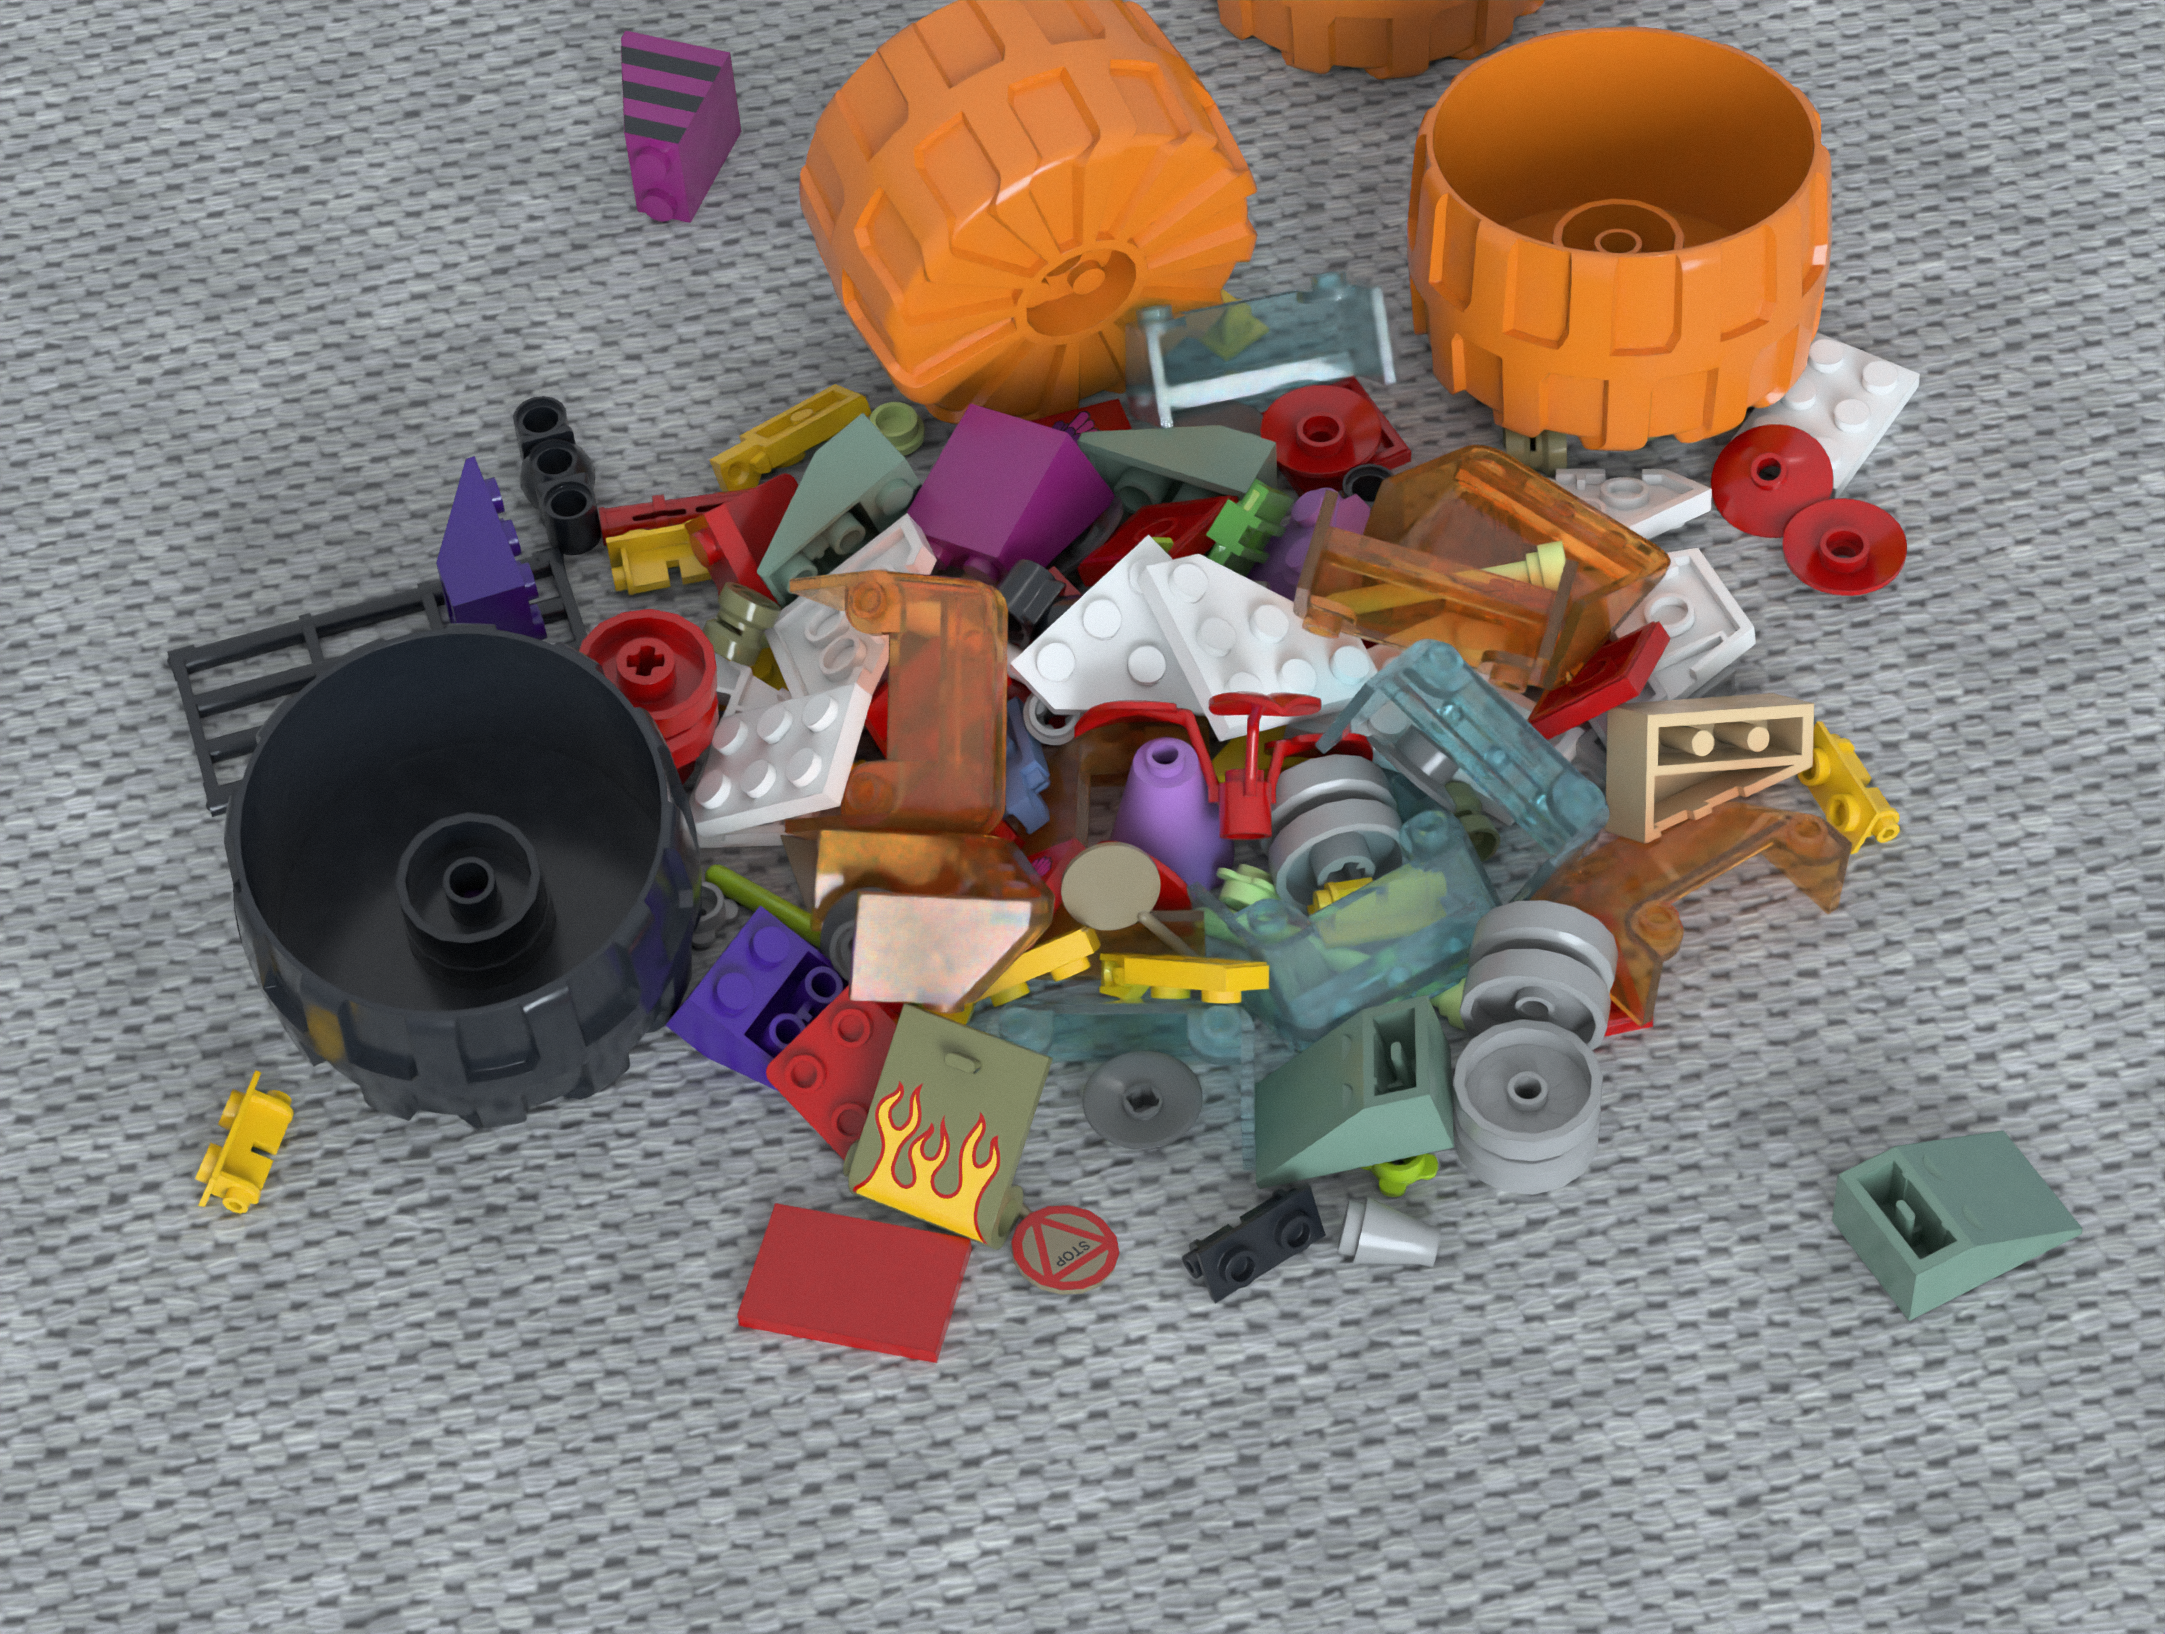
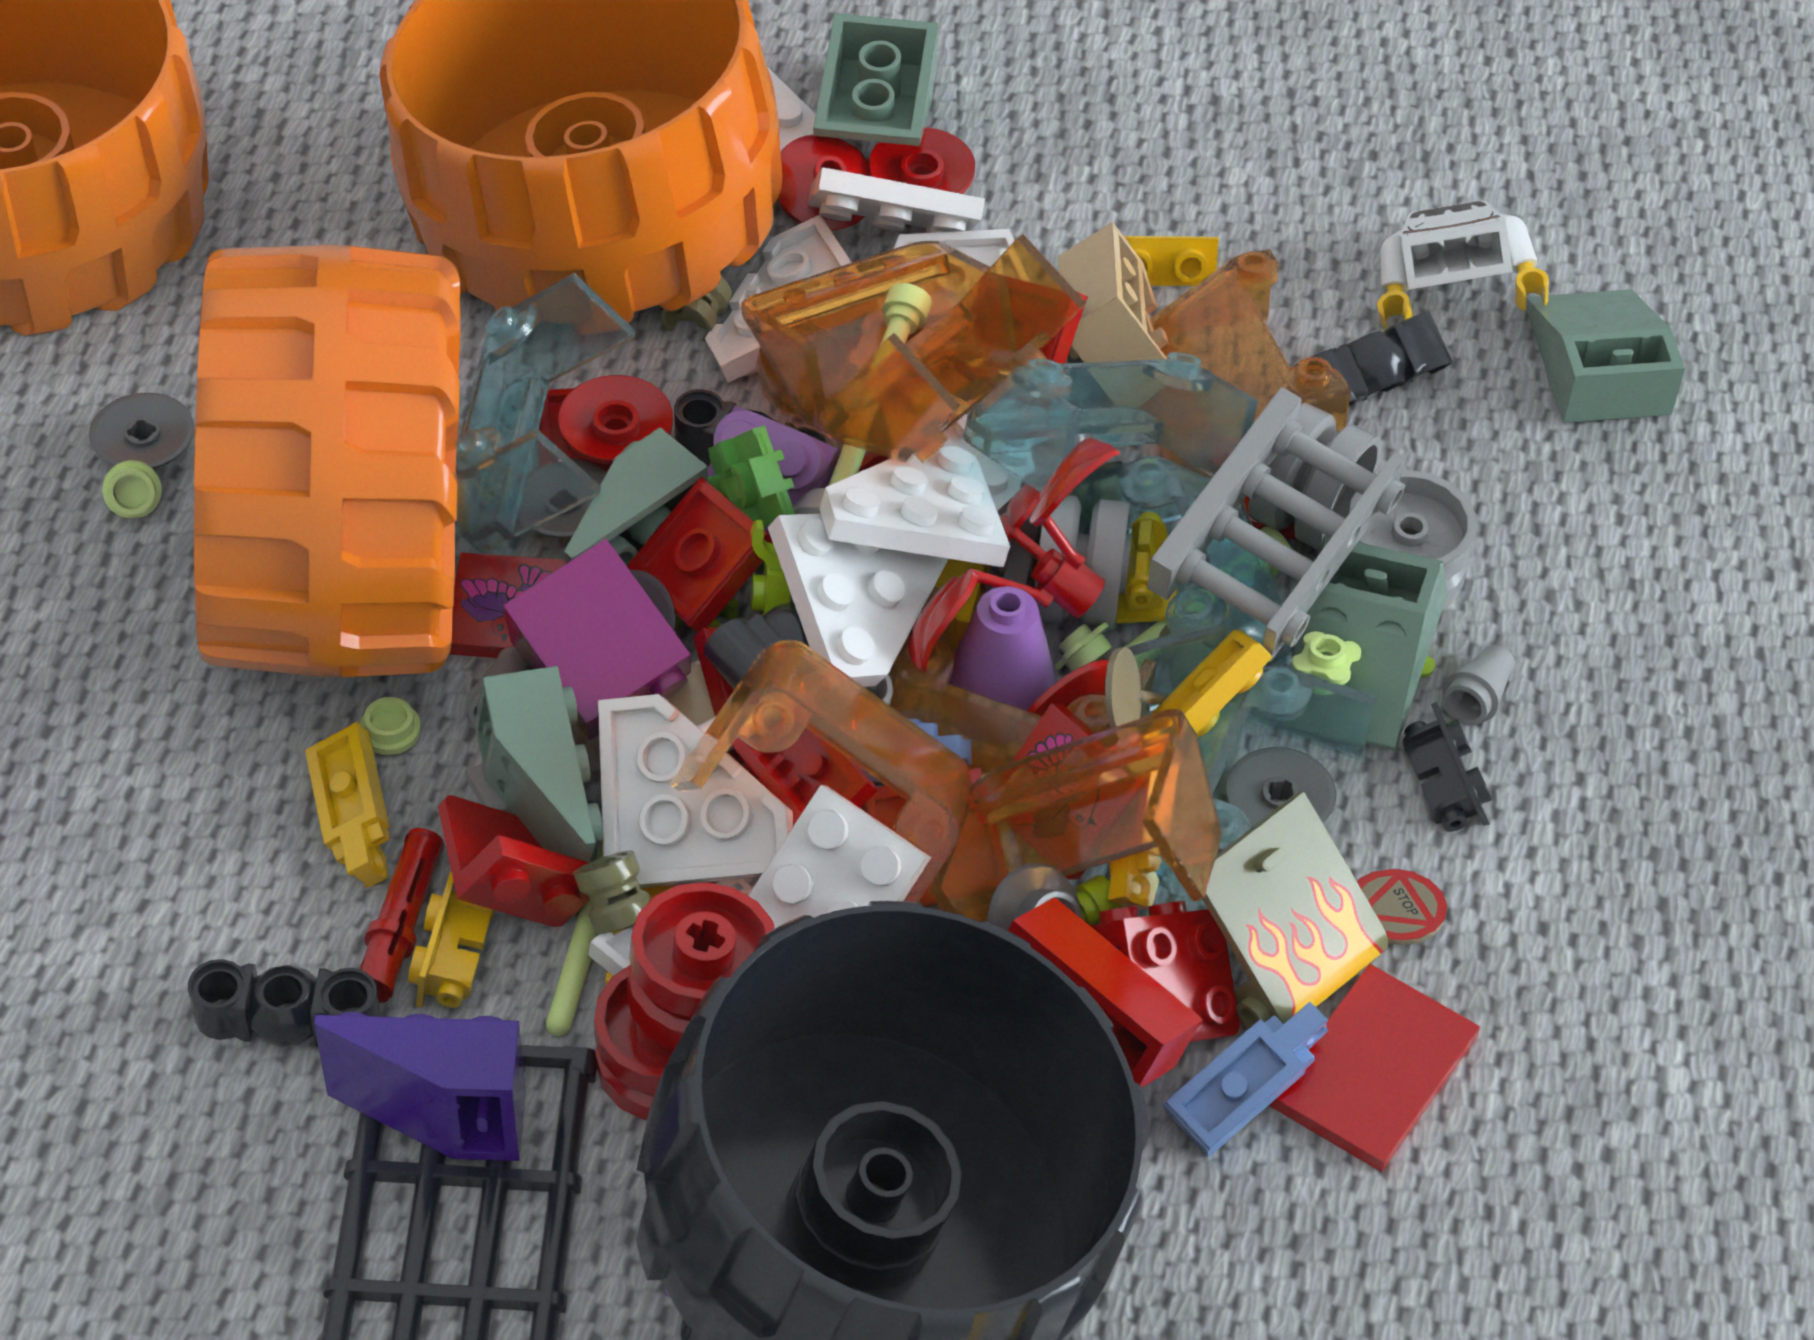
camera: 75 degrees left, 0 degrees up
(766, 991) = (1146, 1017): none -> red brick
(778, 1171) = (1246, 1078): none -> medium blue hinge
(1287, 1061) = (1327, 657): none -> yellowish green plate
(1390, 876) = (1247, 474): none -> light grey fence
(1739, 528) = (893, 203): none -> white plate
(1786, 1010) = (1389, 357): none -> black piece
(1921, 463) = (877, 79): none -> sand green slope
(2003, 1024) = (1456, 246): none -> white torso

